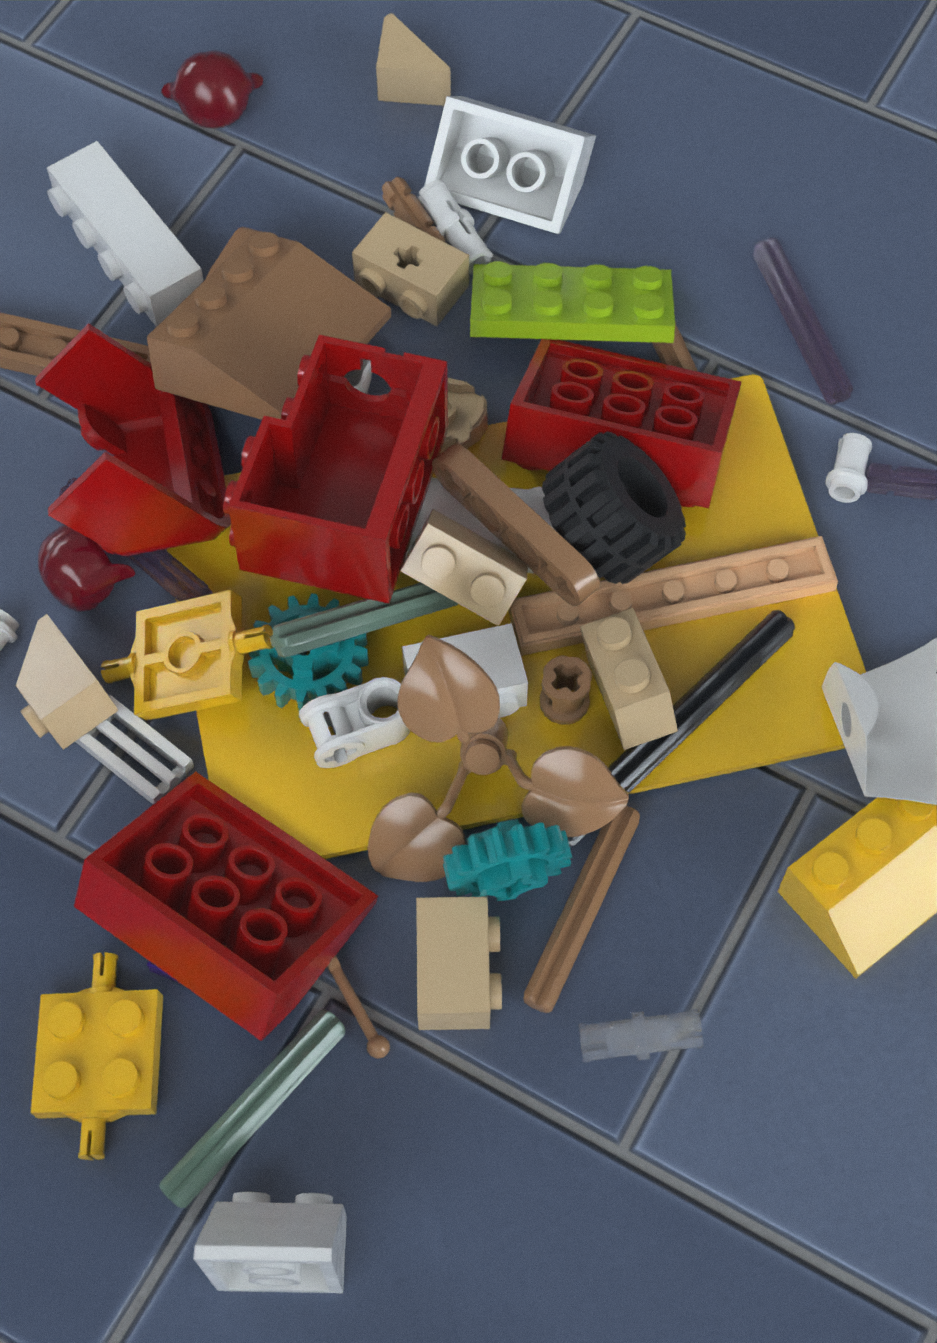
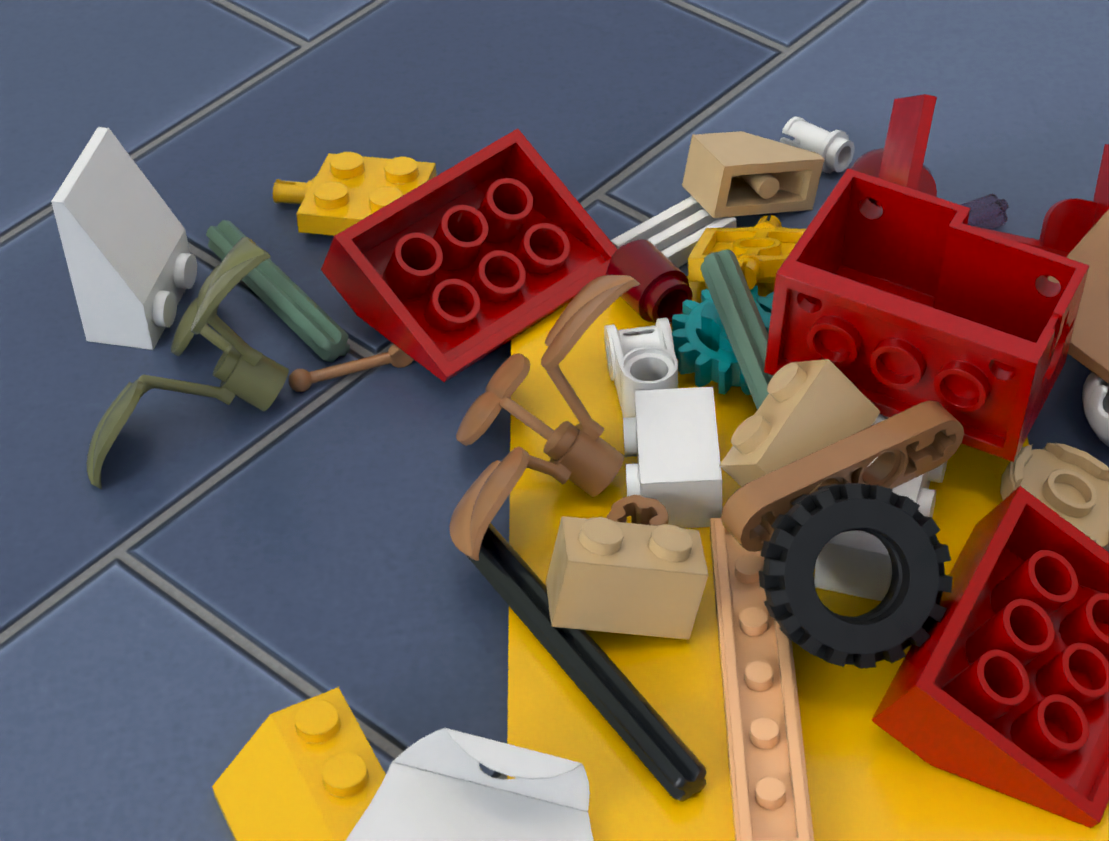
camera: 105 degrees right, 20 degrees down
(240, 737) = (661, 282): none -> dark red brick
(410, 1055) = (240, 368): none -> olive plant
(454, 963) = (355, 427): tan brick -> none
(507, 860) = (437, 454): teal gear -> none
(580, 911) = (390, 551): medium nougat axle -> none
(640, 1035) = (220, 568): clear pin -> none

